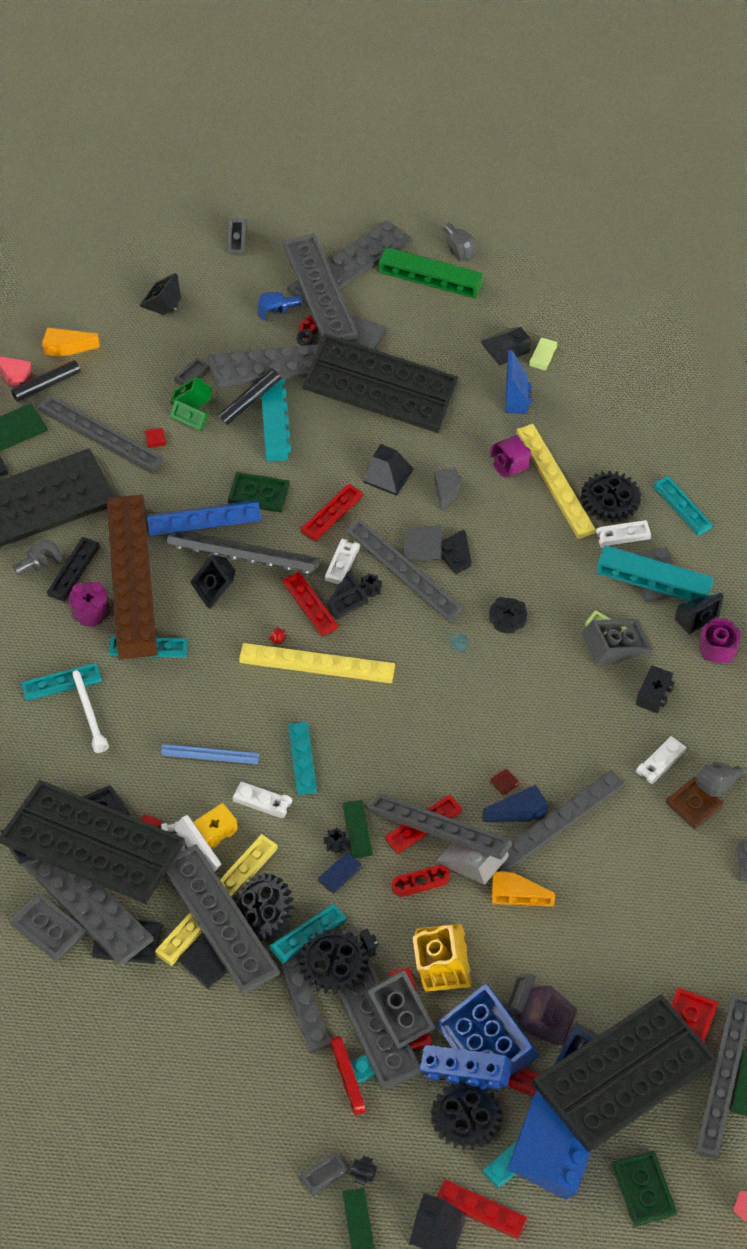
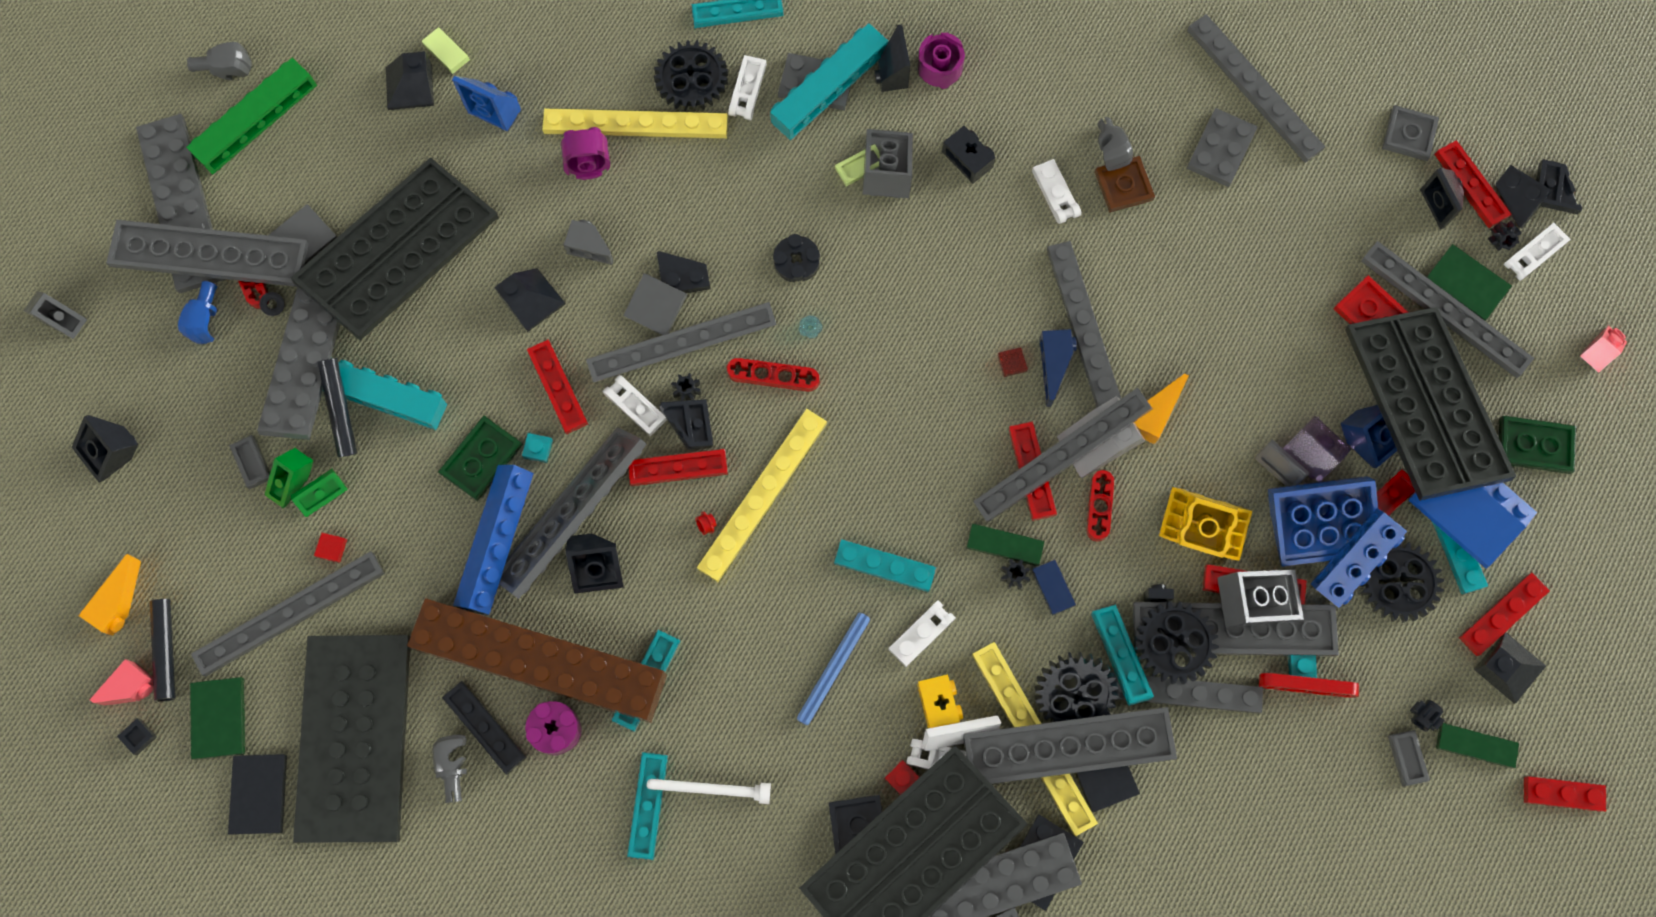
camera: 65 degrees left, 20 degrees up
(282, 520) = (537, 448): none -> teal plate
(410, 634) = (774, 370): none -> red beam

